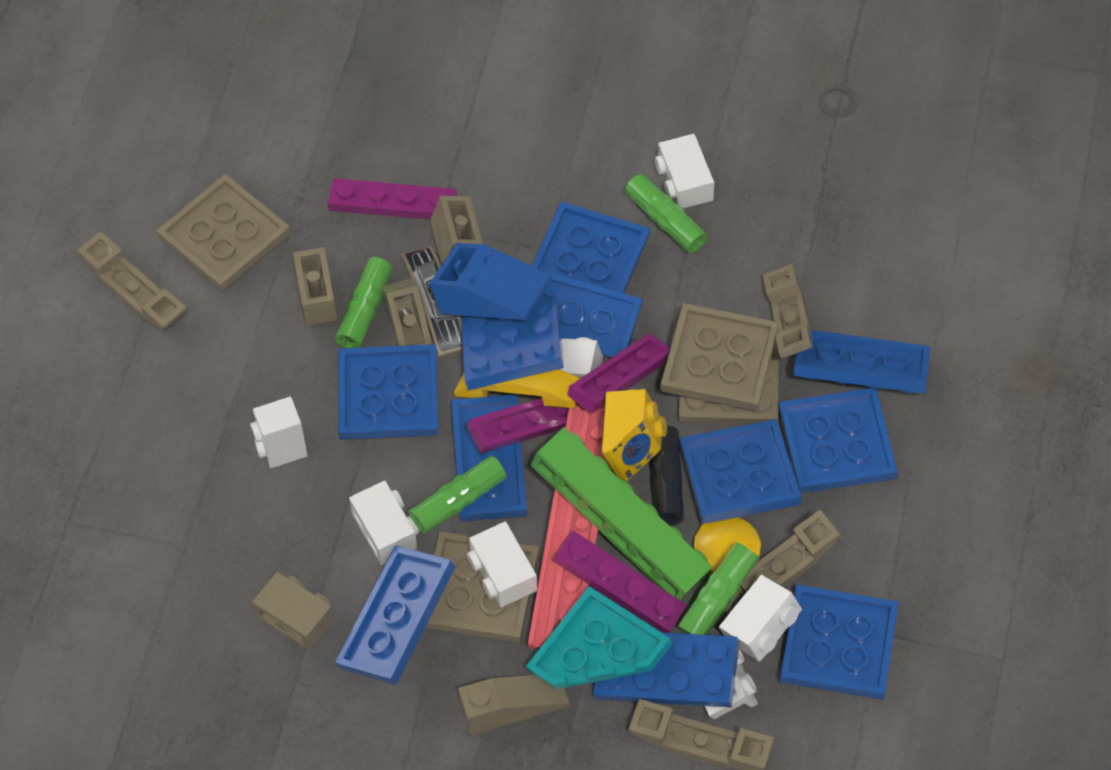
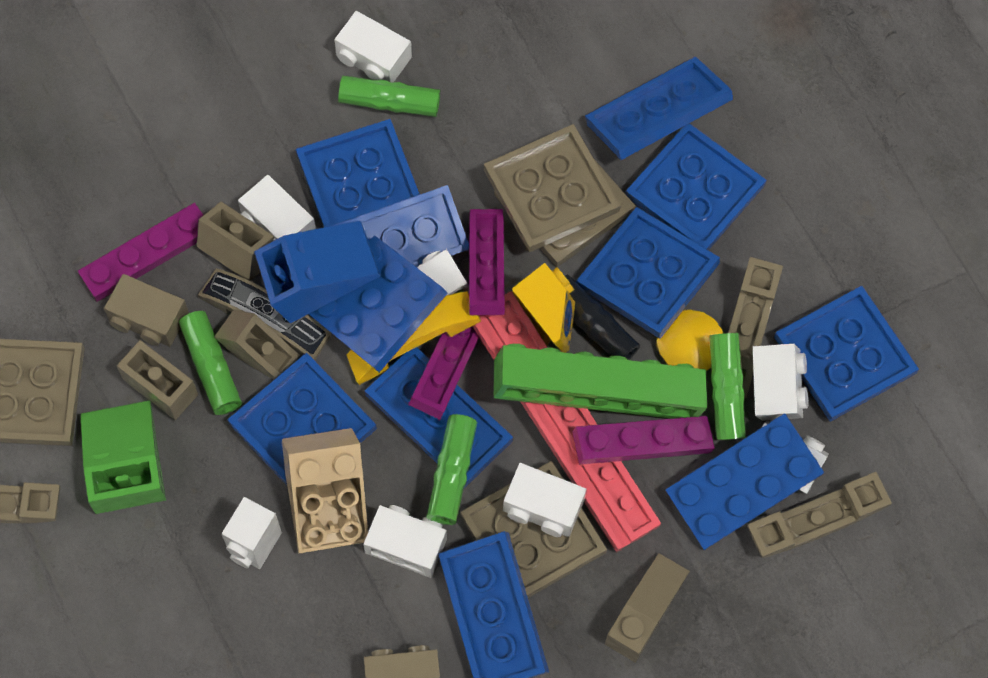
camera: 45 degrees left, 10 degrees up
(243, 322) = (121, 457): none -> bright green slope
(351, 235) = (145, 311): none -> dark tan brick
(357, 441) = (326, 489): none -> tan slope
(504, 228) = (274, 209): none -> white brick
(597, 644) = (681, 506): teal plate -> none
(789, 310) = (565, 109): dark tan slope -> none

